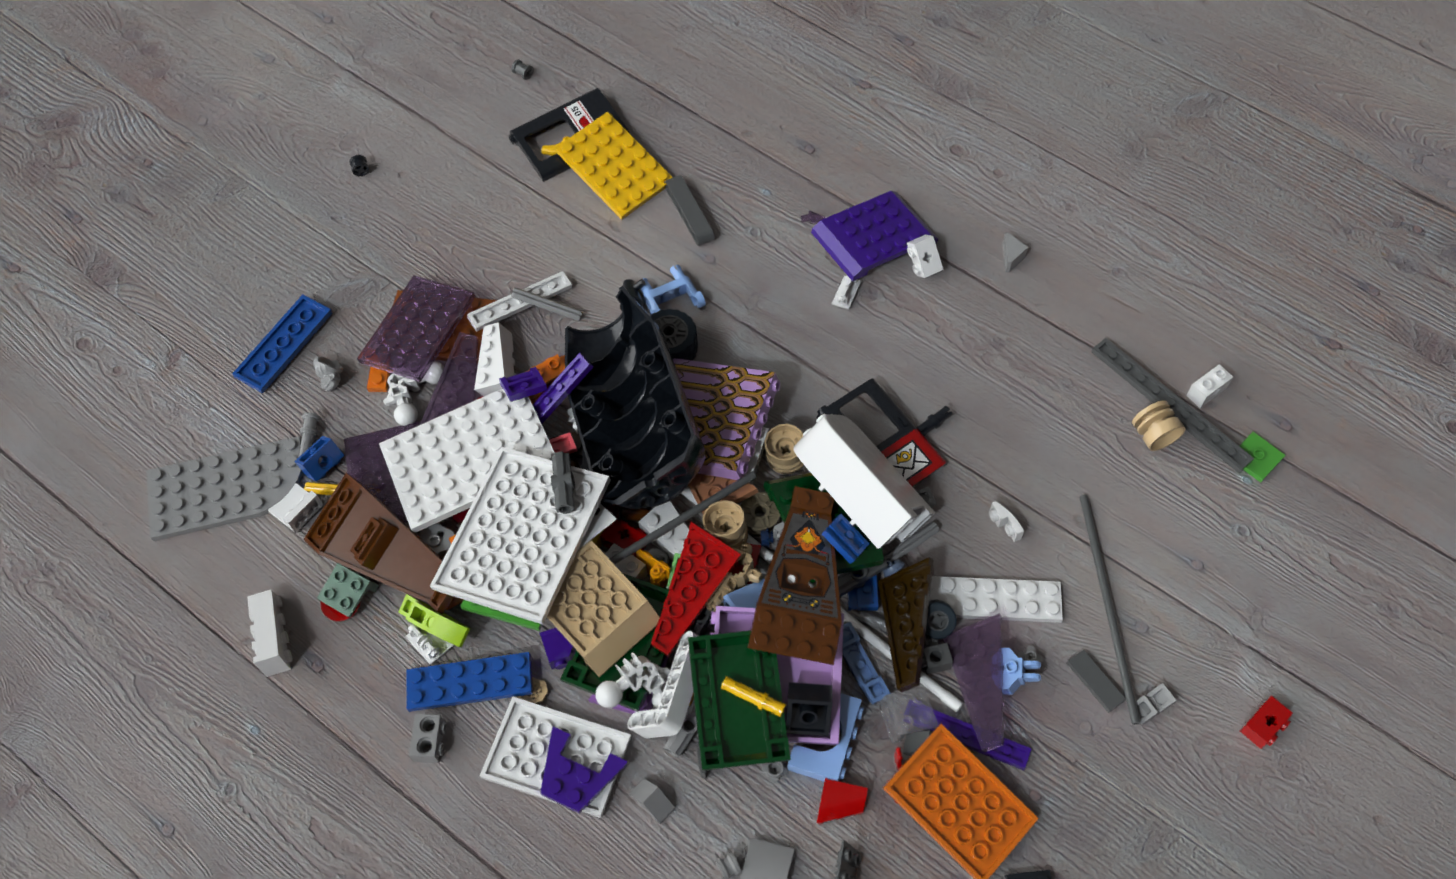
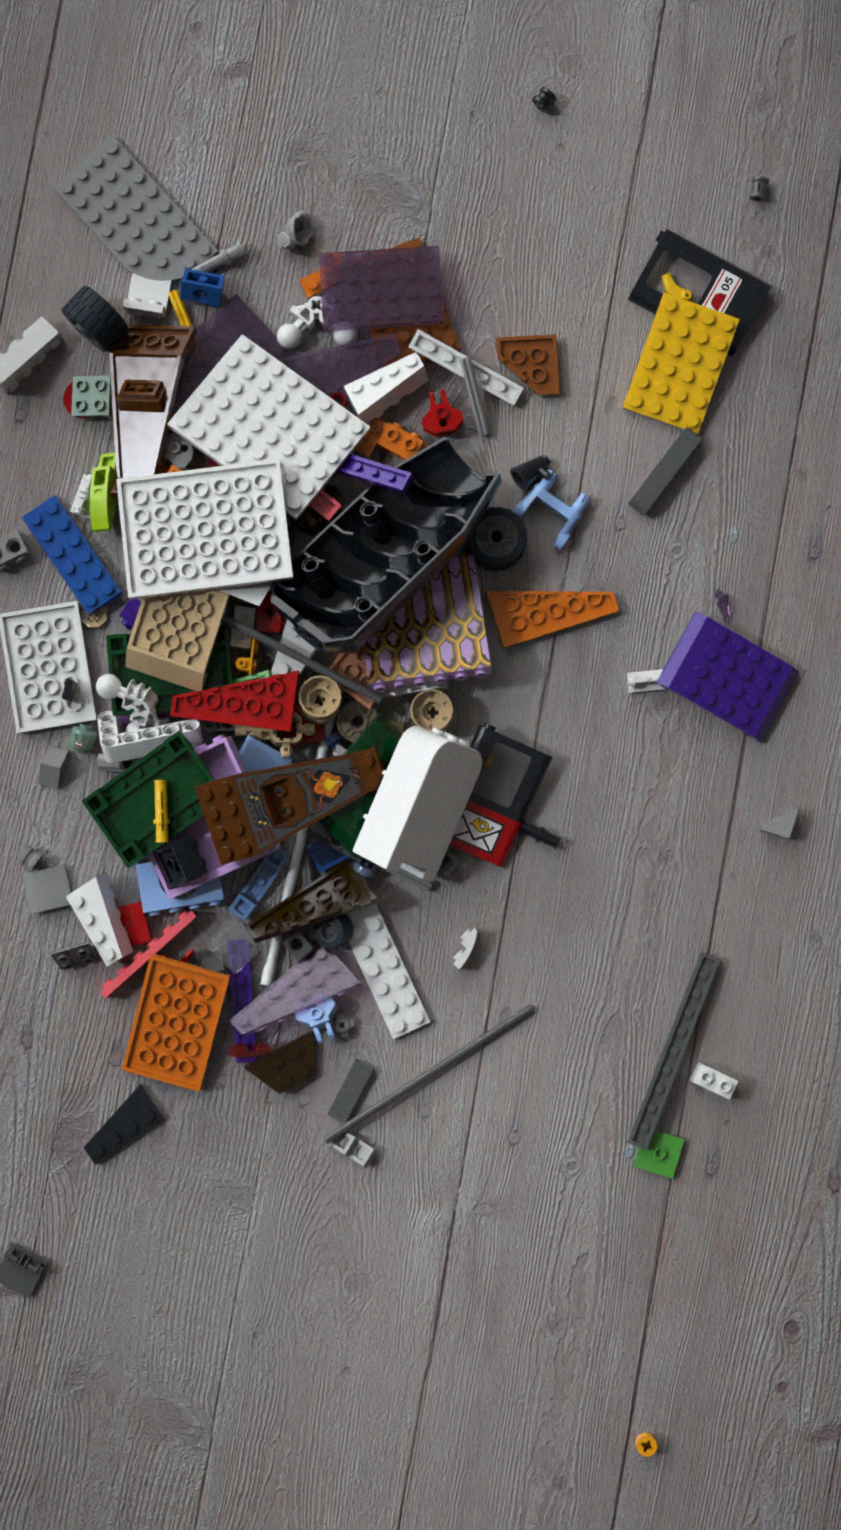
camera: 65 degrees right, 25 degrees up
(281, 550) = (94, 318): none -> black wheel
(282, 343) = (304, 166): blue plate -> none
(523, 384) = (357, 438): dark purple plate -> none
(546, 257) = (532, 361): none -> dark orange plate
(546, 335) = (441, 414): none -> red hinge
(563, 482) = (263, 540): dark grey piece -> none
(571, 782) = (29, 692): dark purple wing -> none
(590, 741) = (69, 690): none -> black tile
(641, 756) = (82, 738): none -> sand green head
(749, 337) = (534, 614): none -> orange wing
(822, 824) = (101, 919): none -> white wedge
(845, 538) = (347, 817): blue plate -> none
(880, 807) = (141, 958): none -> coral plate
(924, 256) = (723, 740): white brick -> none
(1017, 749) = (243, 1051): none -> clear red slope
(1046, 723) = (287, 1064): none -> dark brown wing
(1158, 425) = (637, 1048): tan wheel -> none
(1271, 712) = (376, 1242): red brick -> none

